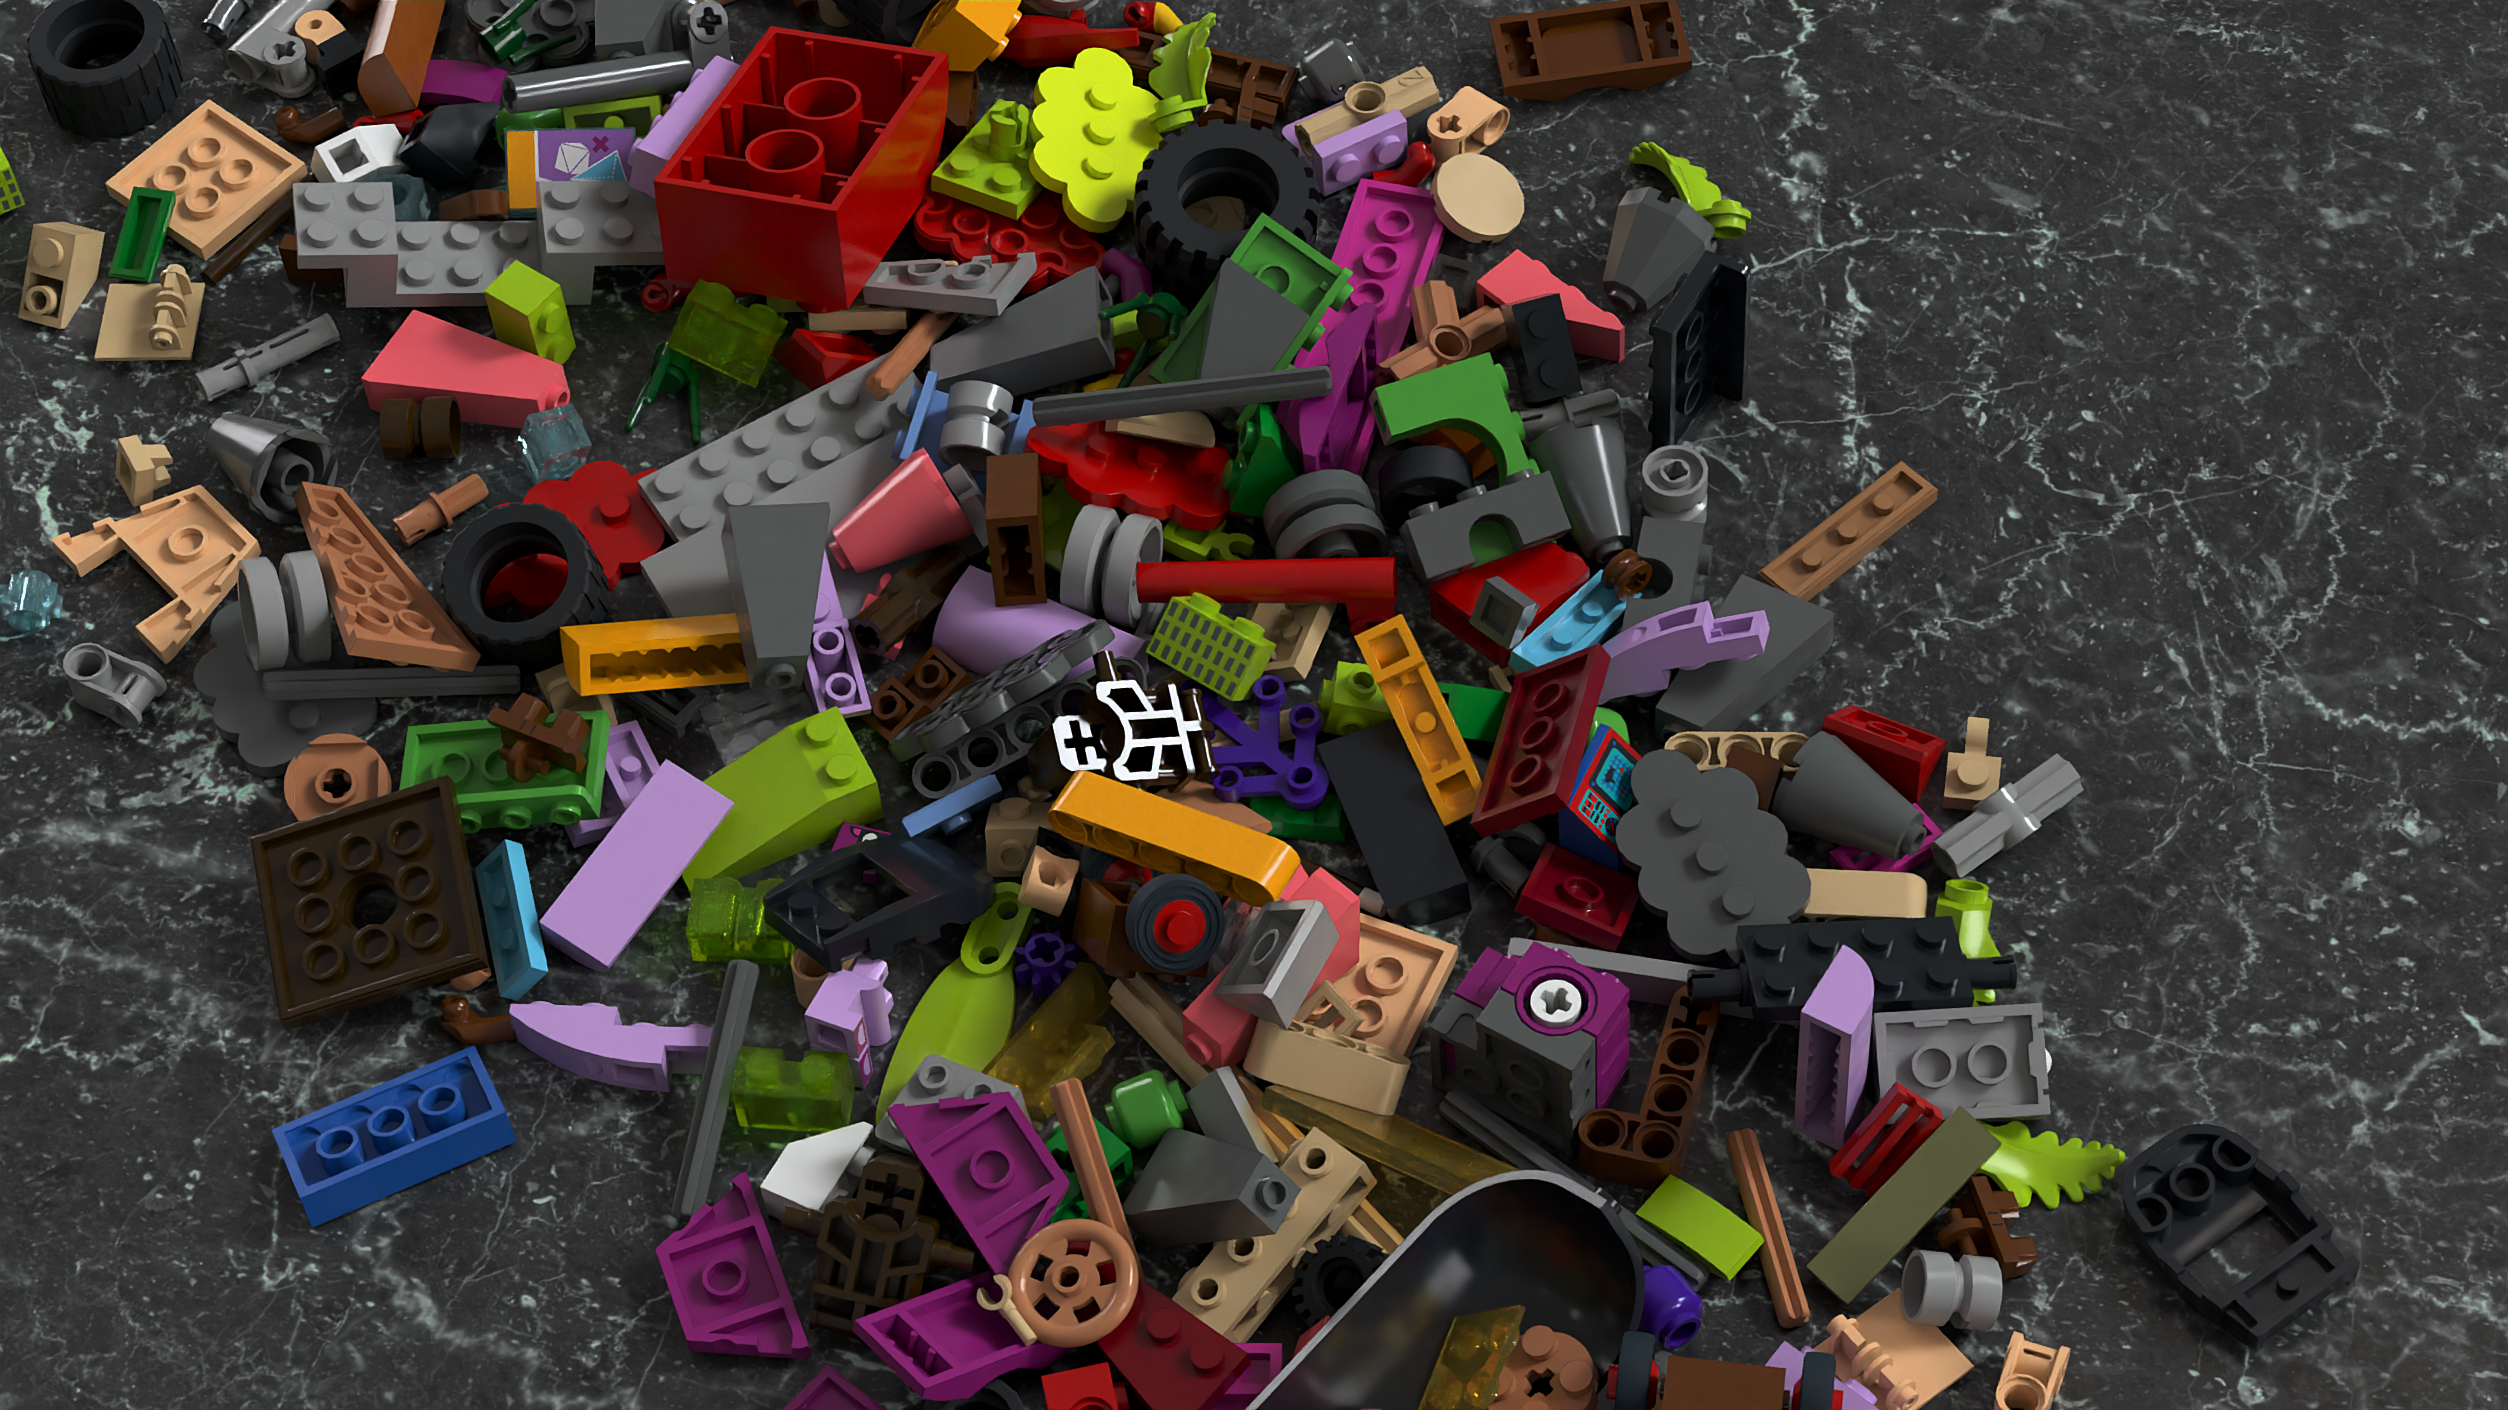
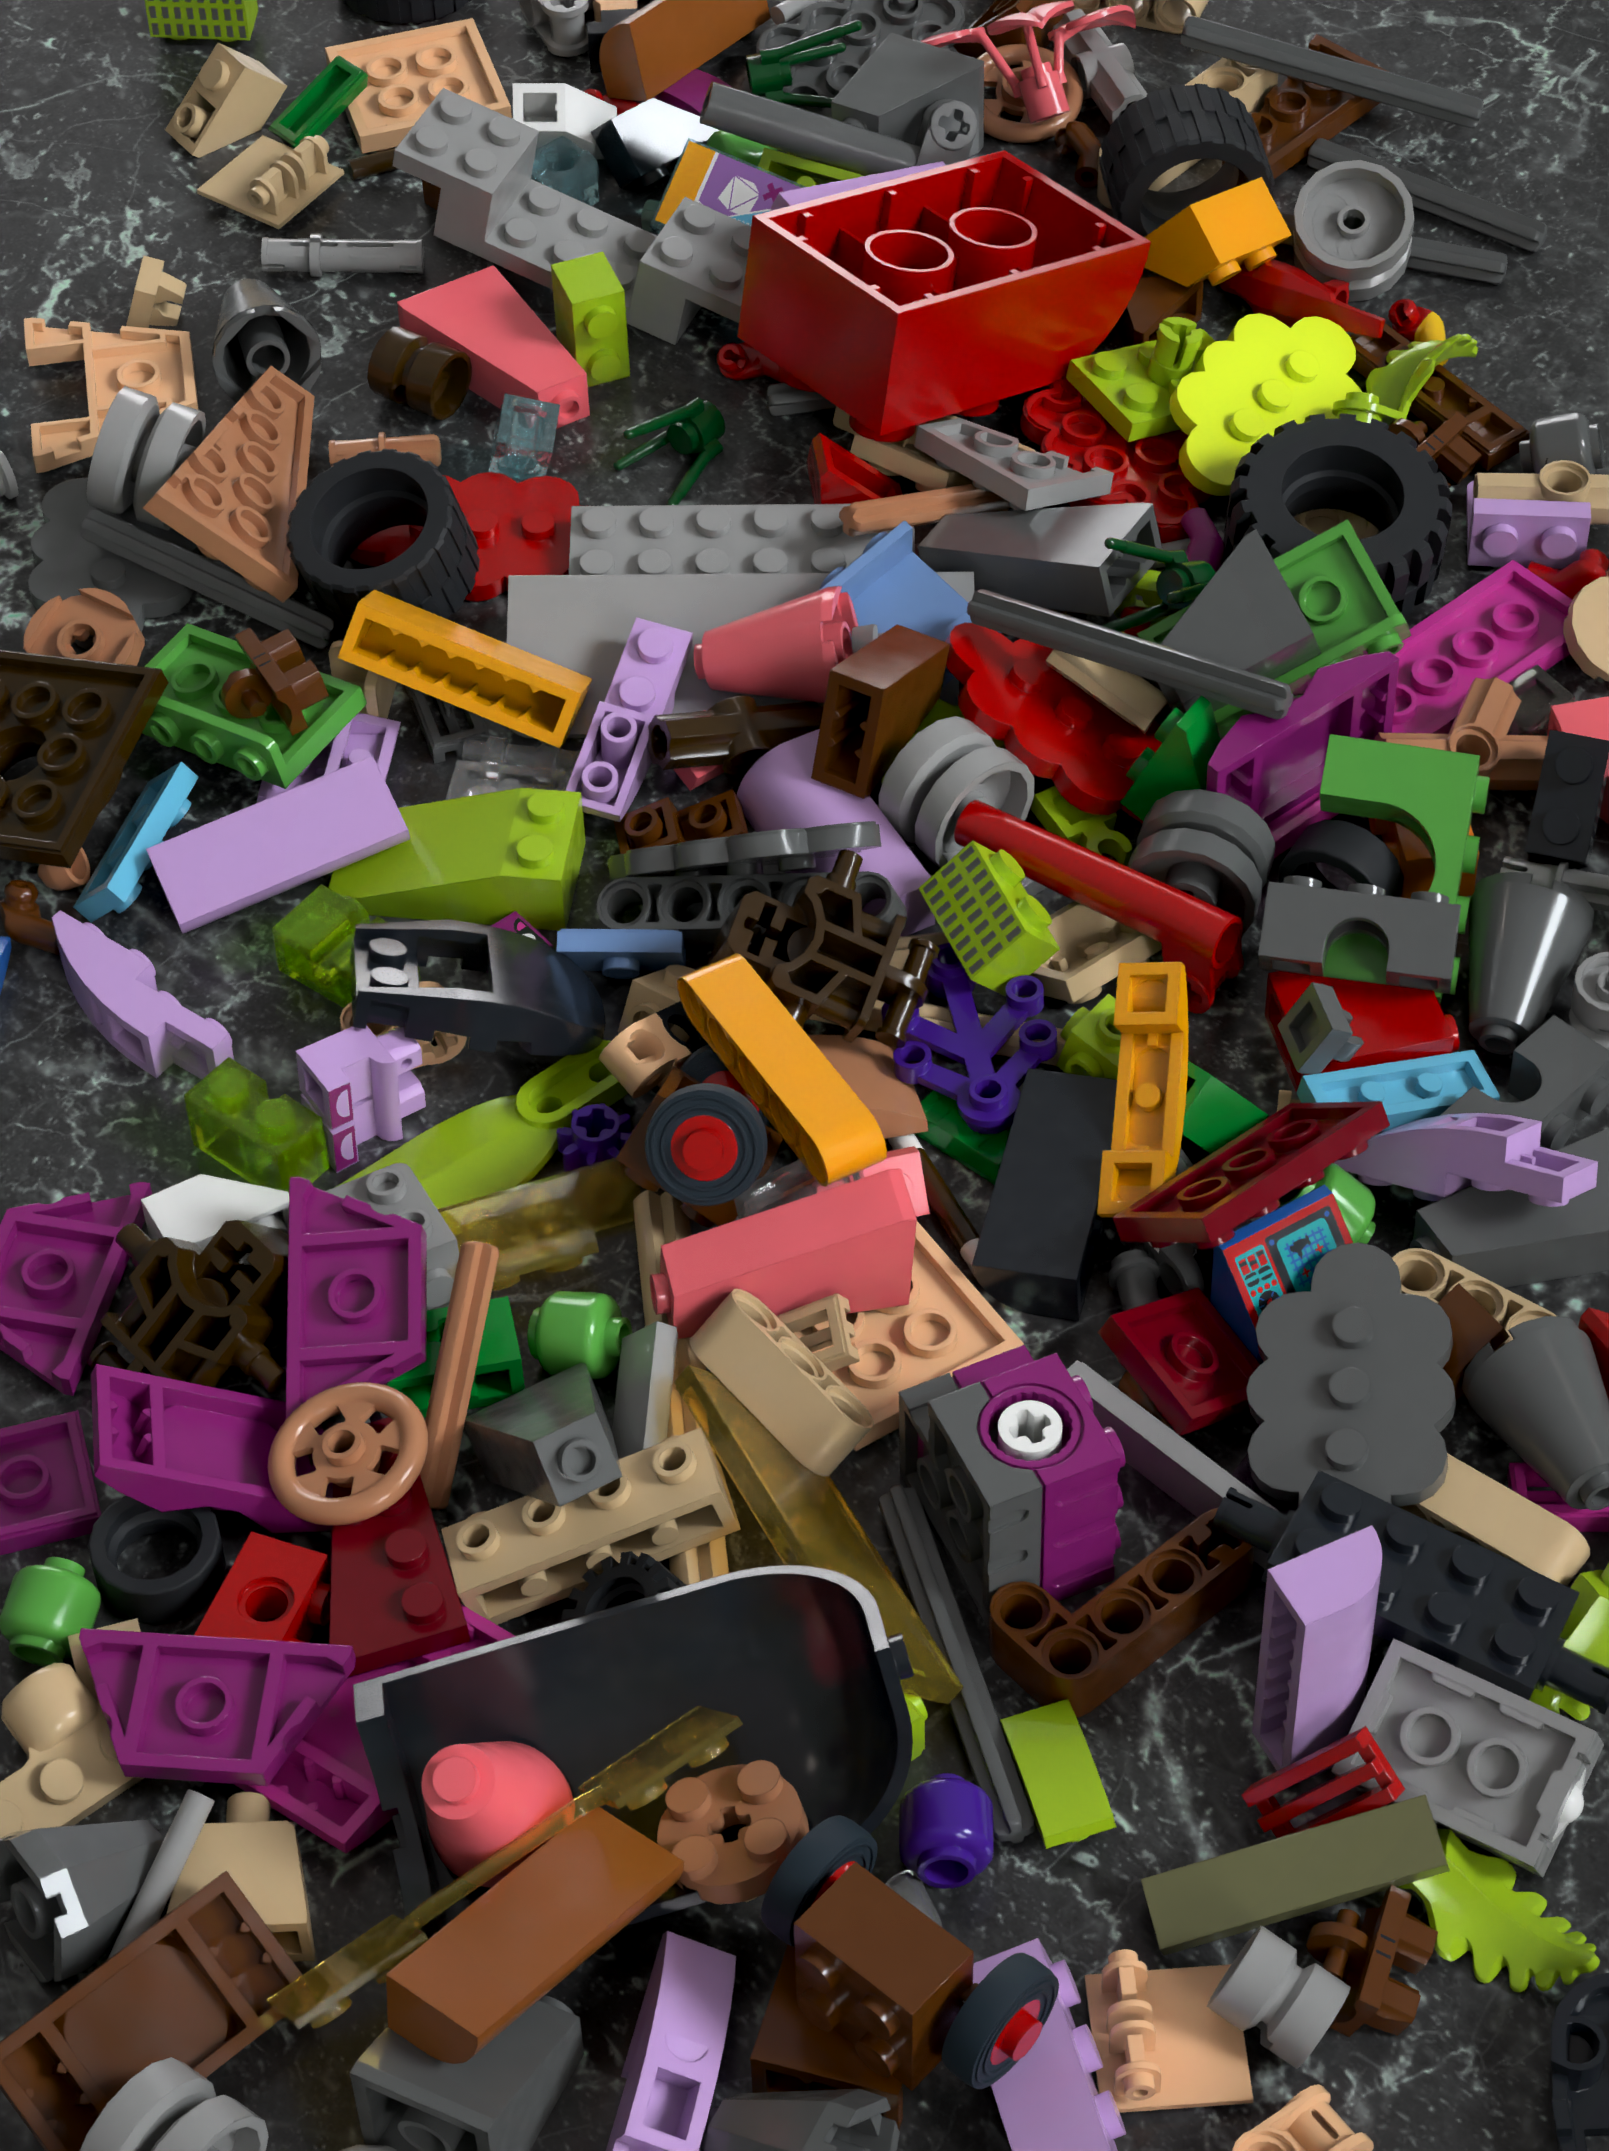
camera: 30 degrees right, 5 degrees down
(308, 130) = (531, 71): reddish brown arm -> none
(476, 206) = (626, 203): reddish brown beam -> none
(715, 1089) = (166, 1097): dark grey axle -> none
(726, 333) = (758, 414): clear neon green brick -> none
(774, 583) = (598, 646): dark grey slope -> none
(977, 423) = (923, 594): light grey wheel -> none
(1007, 1309) = (253, 1424): tan hand -> none
(1279, 960) = (785, 1242): light grey slope -> none
(1626, 574) = (1488, 1062): reddish brown bush -> none
(1766, 1219) = (1135, 1819): nougat axle -> none

